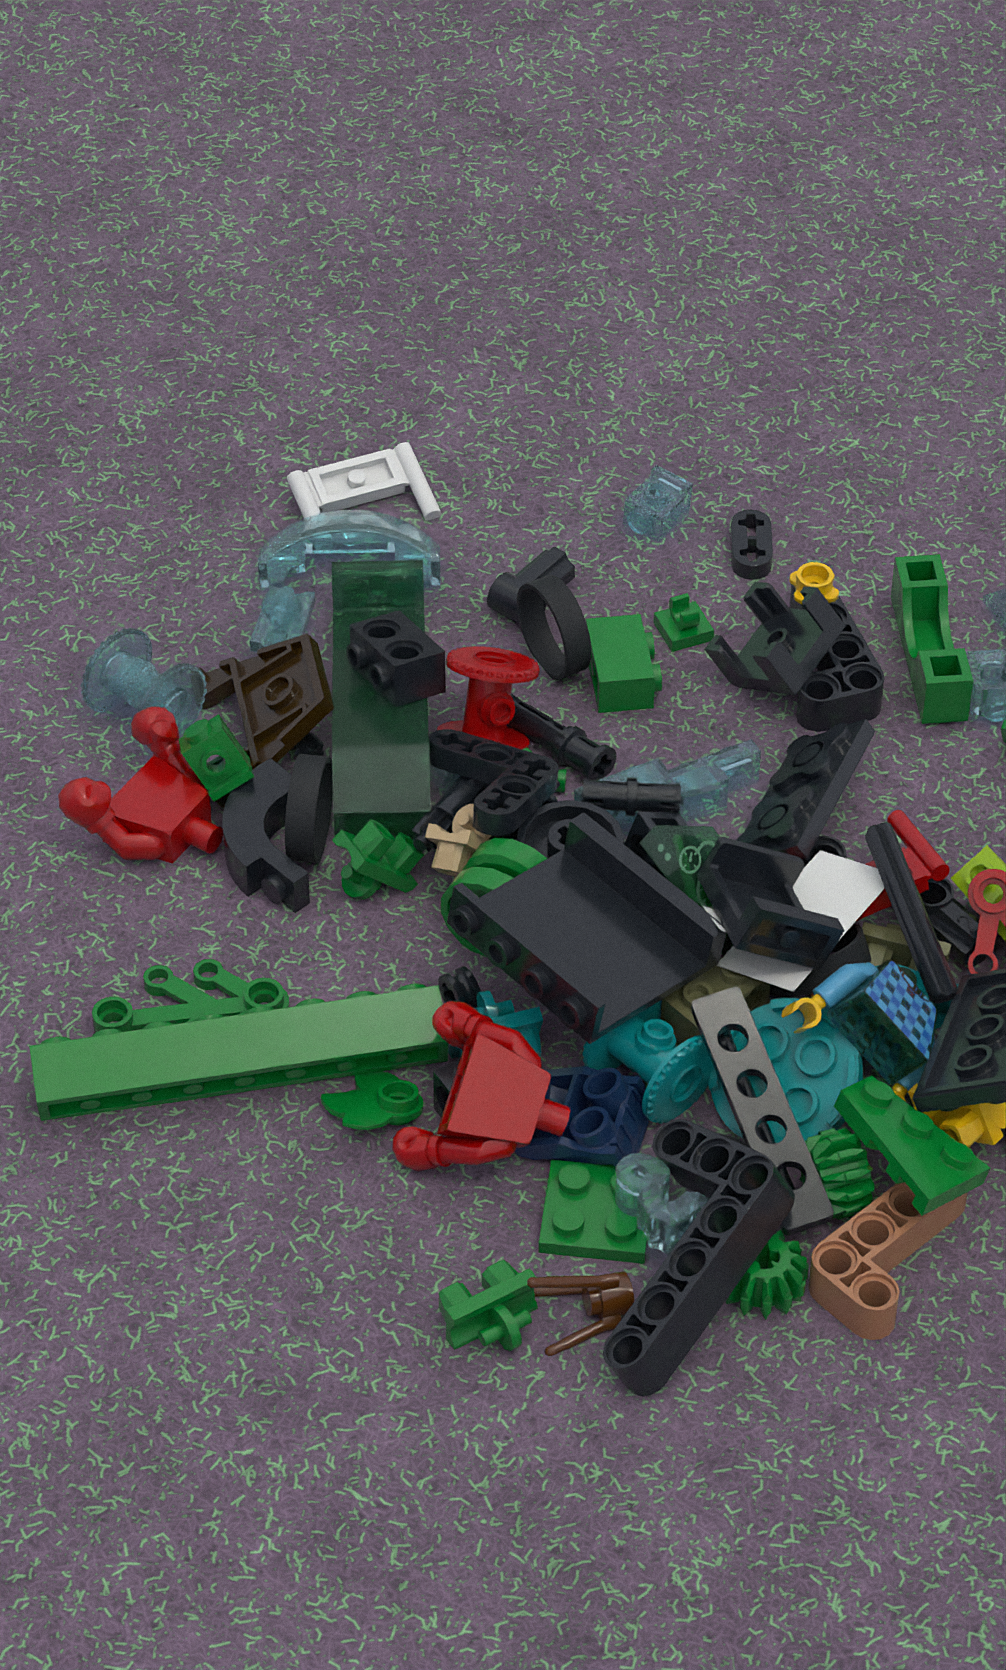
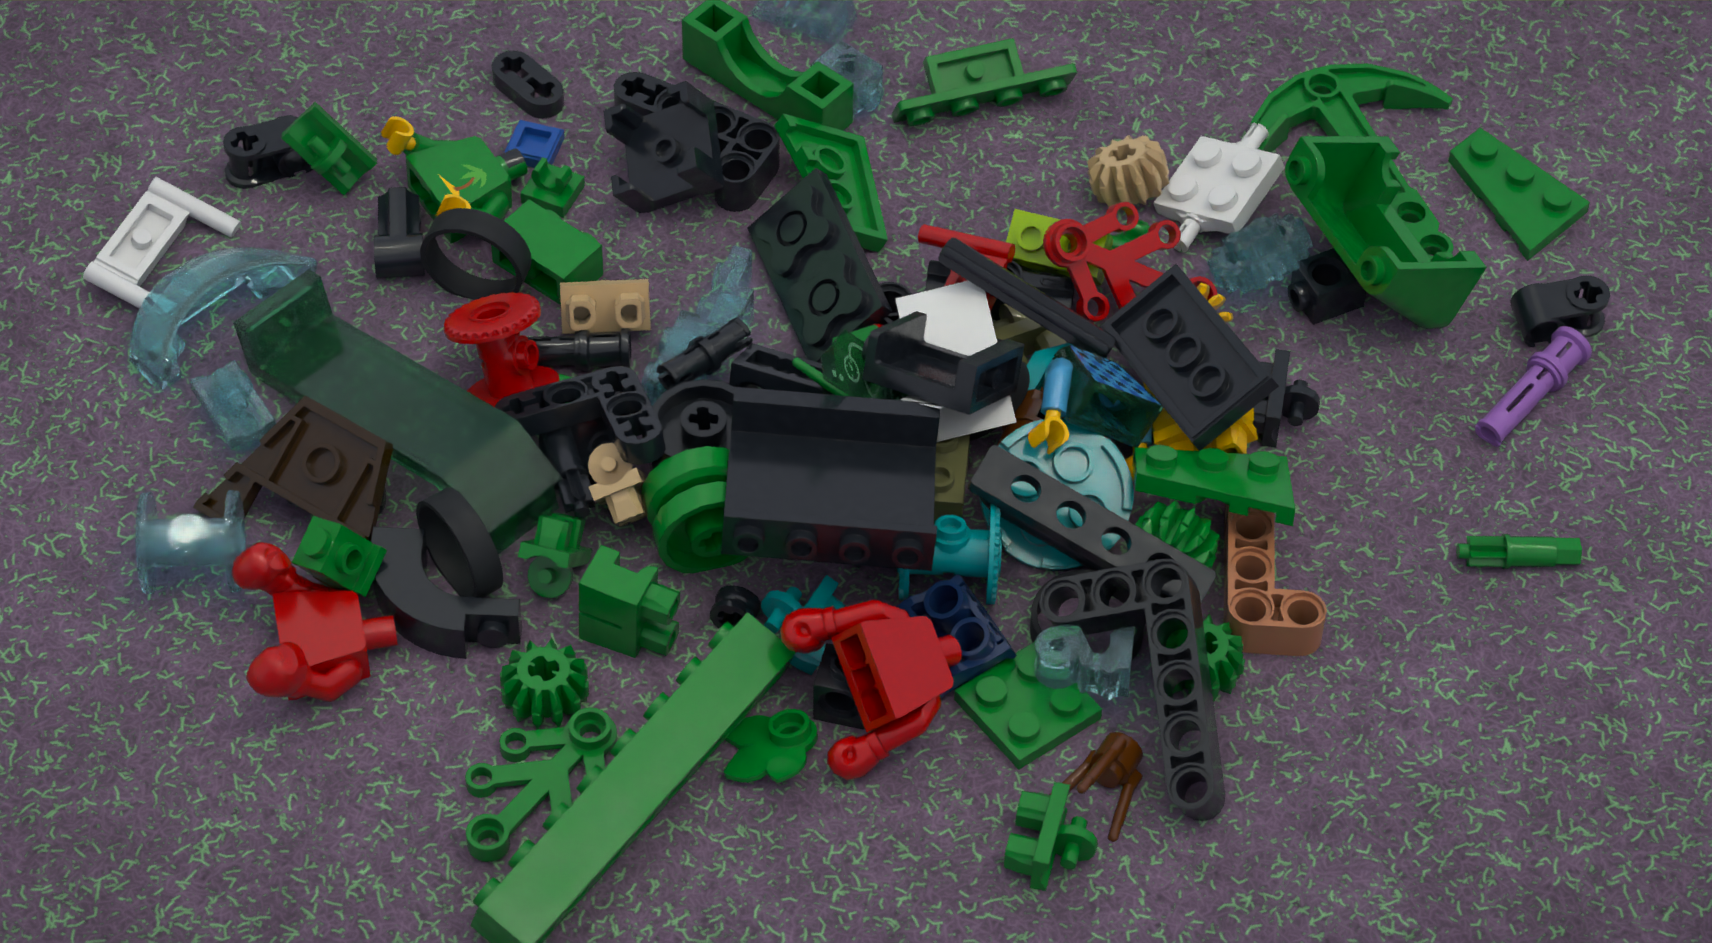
camera: 45 degrees left, 5 degrees up
(269, 944) = (544, 683): none -> green gear
(373, 927) = (626, 607): none -> green hips
(397, 658) = (401, 366): black brick -> none
(510, 477) = (262, 151): none -> black piece
(544, 494) = (329, 148): none -> green hips
(613, 722) = (605, 305): none -> tan hips
(614, 570) = (455, 172): none -> green torso
(658, 504) = (421, 95): clear light blue brick -> none
(708, 588) = (536, 142): none -> blue tile
(814, 575) = (643, 82): yellow plate -> none
(903, 748) = (848, 167): none -> green wing

